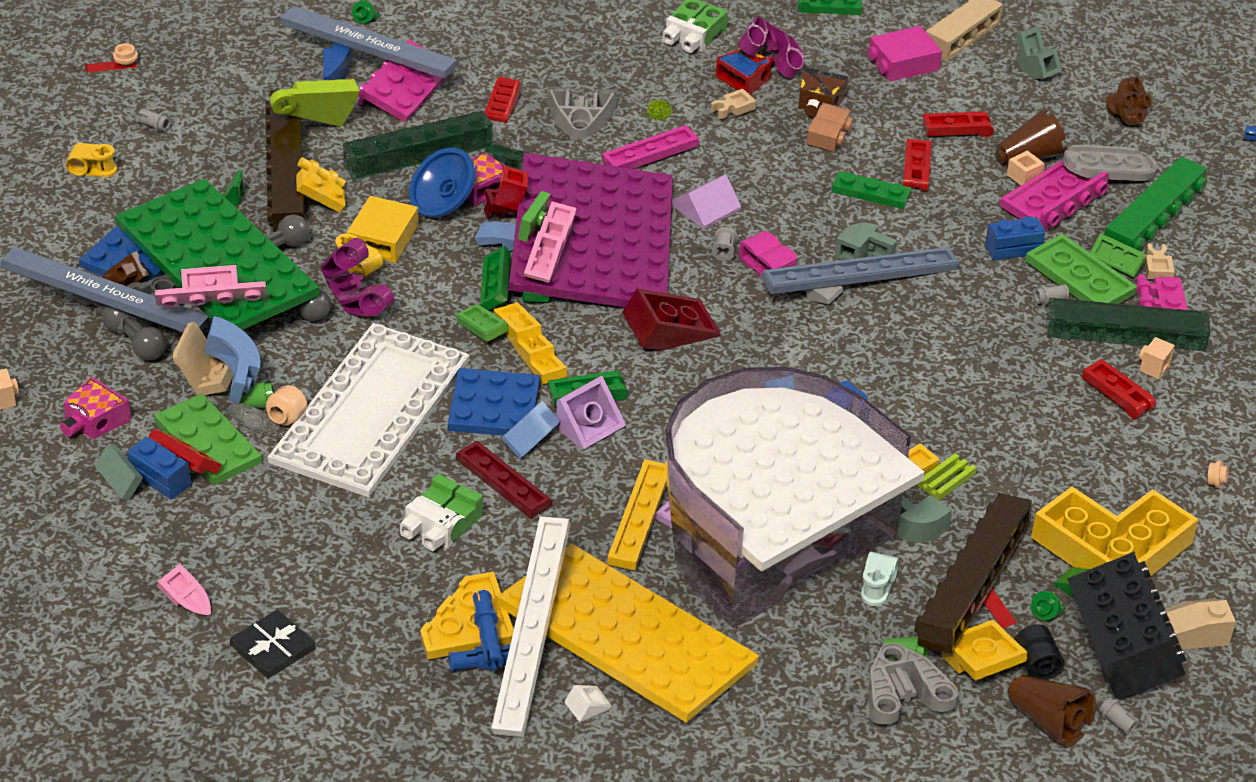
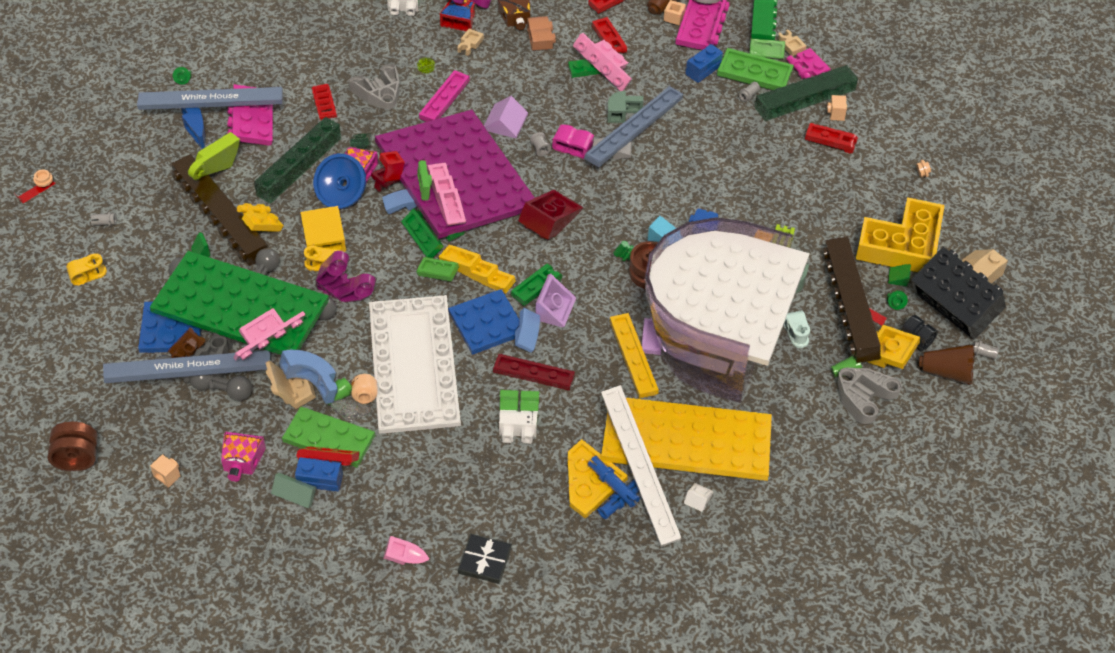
camera: 30 degrees left, 10 degrees up
(883, 183) = (604, 59): none -> bright pink bracket

